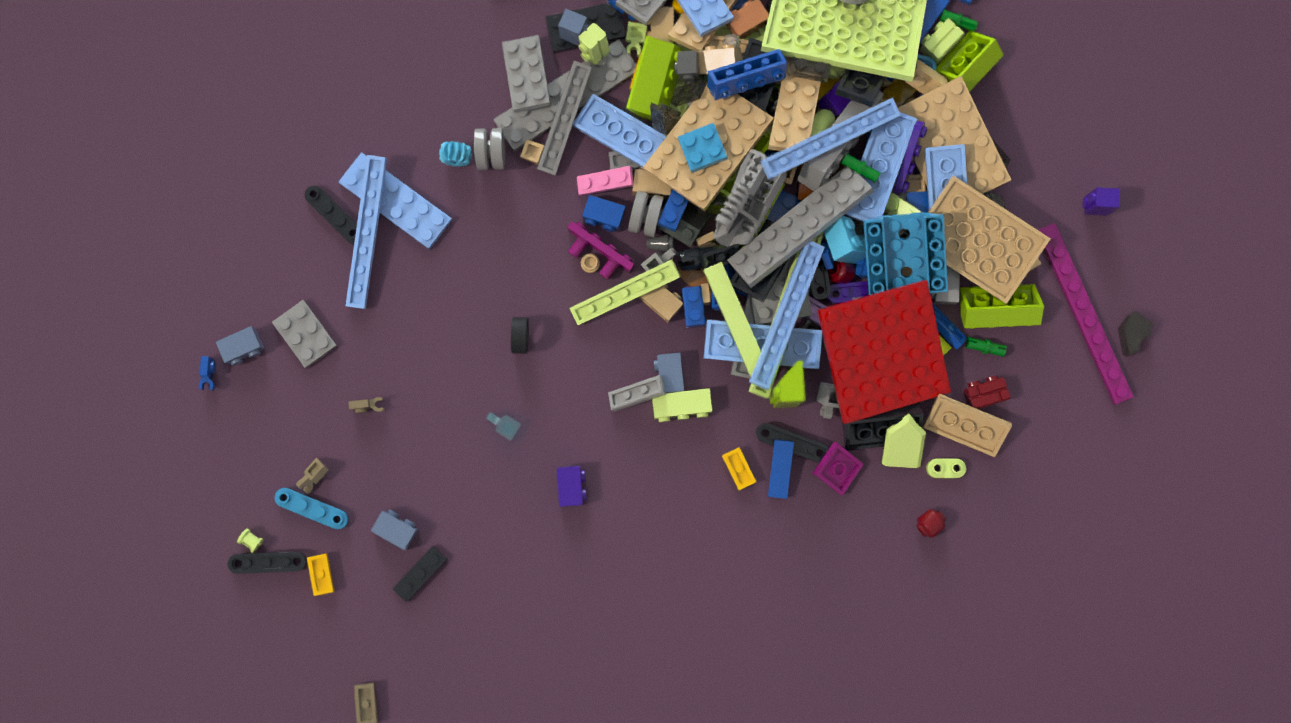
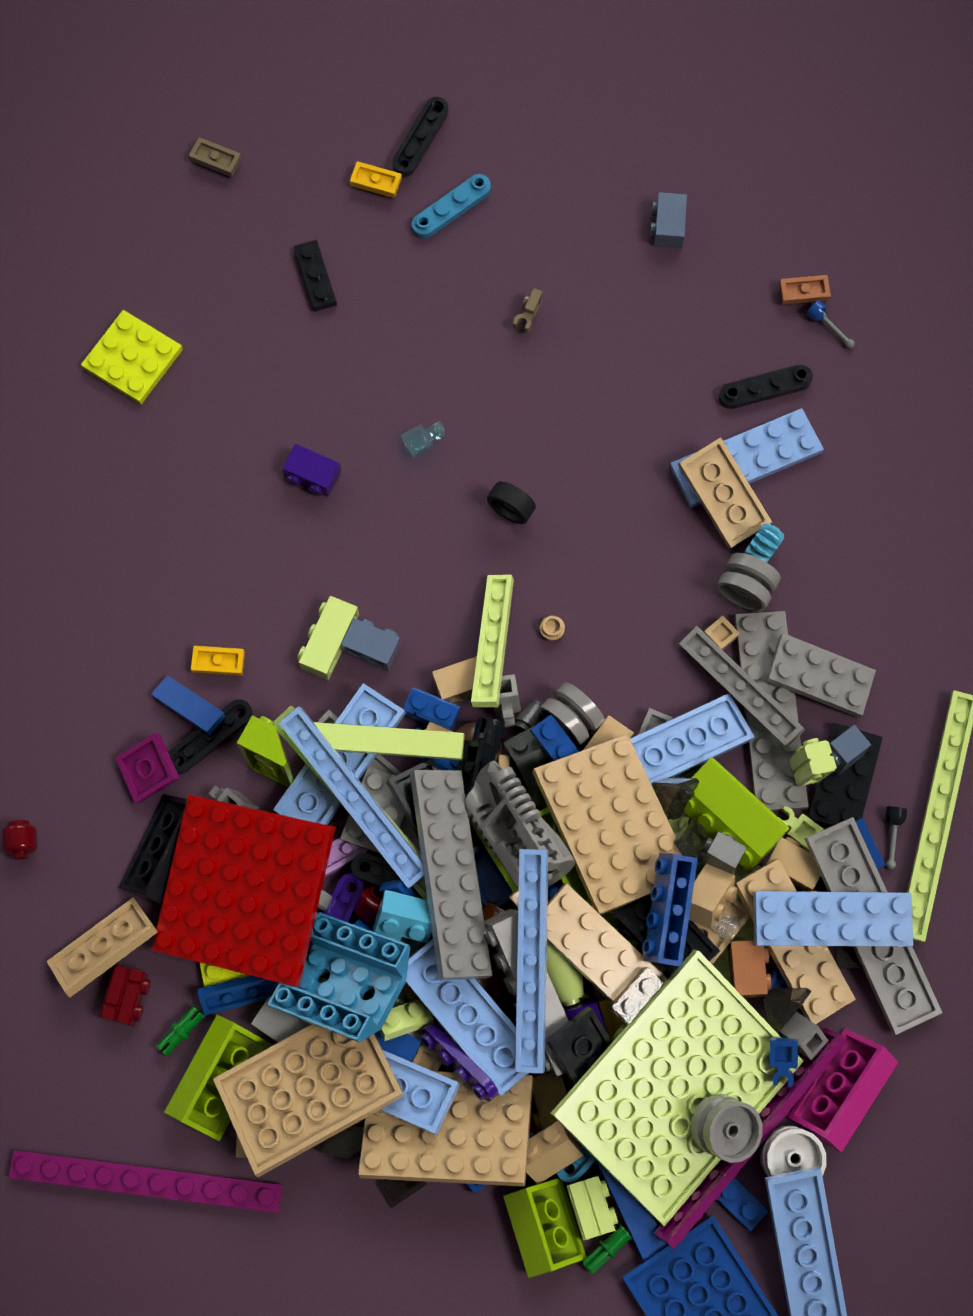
camera: 120 degrees right, 10 degrees down
(207, 368) = (662, 175): blue plate -> none
(245, 225) = (804, 289): none -> nougat plate
(250, 540) = (453, 131): yellowish green bush -> none
(257, 207) = (818, 313): none -> hinge
(304, 334) = (646, 291): light grey plate -> none
(313, 474) = (486, 224): dark tan plate -> none
(366, 232) = (726, 405): light blue plate -> none
(394, 529) = (376, 272): sand blue brick -> none
(432, 198) = (724, 492): none -> tan plate
(555, 666) = (131, 357): none -> neon yellow plate
(603, 213) = (601, 672): blue brick -> none
(605, 181) = (639, 694): bright pink plate -> none
(614, 259) = (574, 644): magenta plate -> none
(636, 393) = (369, 593): light grey tile -> none
(702, 147) = (609, 807): dark azure plate -> none
(860, 167) = (478, 985): green pin -> none
(904, 444) = (126, 859): yellowish green tile -> none
(946, 468) = (72, 898): yellowish green plate -> none
(1101, 201) = (267, 1285): dark purple brick -> none
(1132, 332) = (85, 1227): clear smoke slope -> none

